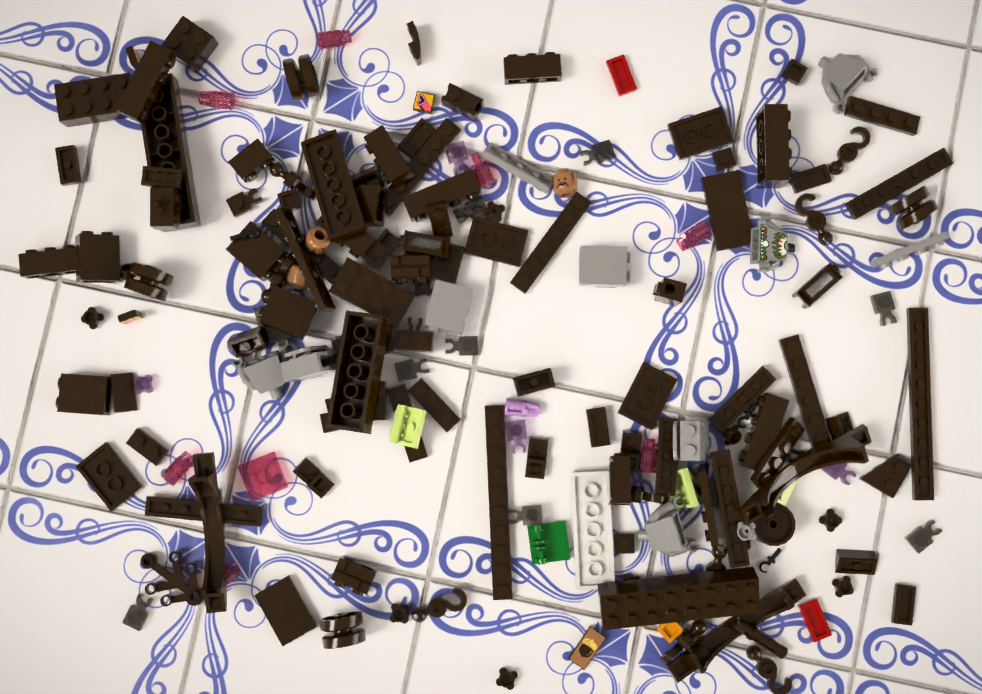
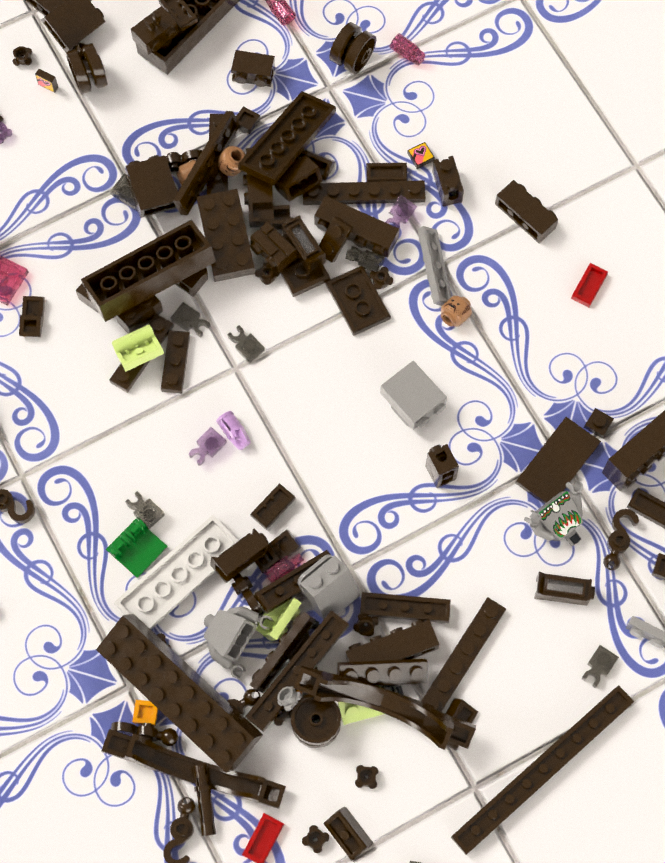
camera: 50 degrees right, 15 degrees down
(240, 203) = (212, 88): dark brown plate -> none
(244, 234) = (186, 104): black hand -> none
(248, 342) = (102, 179): dark brown slope -> none
(258, 254) = (182, 126): dark brown brick -> none
(264, 372) = (90, 210): light grey torso -> none
(291, 180) = (264, 108): dark brown piece -> none
(309, 363) = (121, 229): light grey brick -> none
(387, 157) = (349, 160): dark brown brick -> none
(413, 340) = (216, 299): dark brown brick -> none
(414, 46) = (460, 111): dark brown slope -> none
(448, 308) = (266, 304): light grey brick -> none
(482, 171) = (405, 242): clear pink hinge -> none
(498, 502) = (134, 480): dark brown plate -> none
(533, 382) = (264, 420): dark brown brick -> none
(536, 457) = (202, 479): dark brown slope -> none
(550, 242) = (397, 342): dark brown plate -> none
(587, 647) = (69, 656): tile -> none
(600, 152) = (508, 321): clear smoke plate -> none
(624, 543) = (190, 612): dark brown plate -> none
(647, 396) = (337, 526): dark brown tile -> none
(693, 236) = (509, 450): clear pink hinge -> none
(700, 133) = (601, 385): dark brown plate -> none
(747, 414) = (397, 624): black hand -> none
(771, 559) = (284, 753): black hand -> none
(838, 470) = (417, 743): clear purple plate -> none
(887, 476) = (452, 796): dark brown wing -> none

